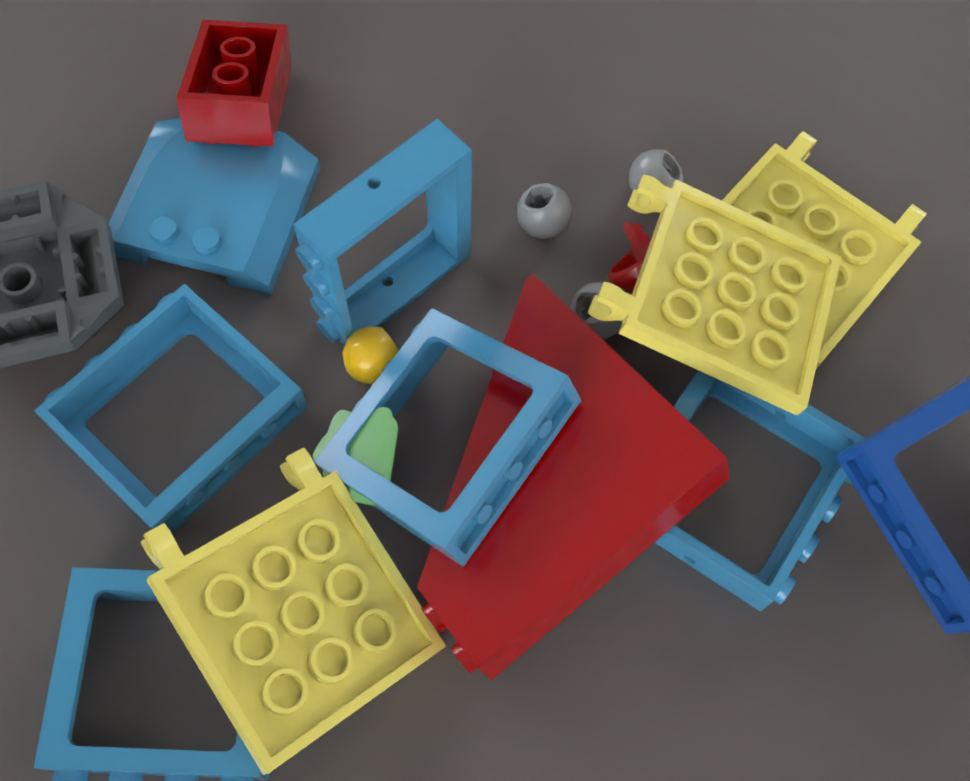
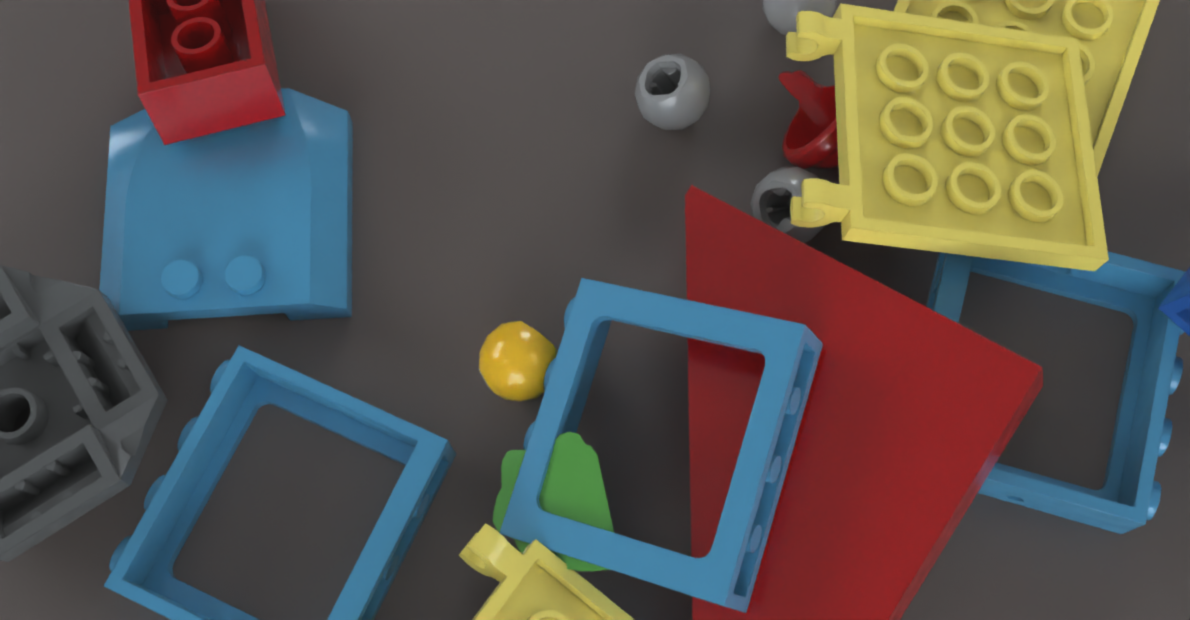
camera: 10 degrees left, 5 degrees up
(427, 162) = (511, 197): dark azure piece -> none

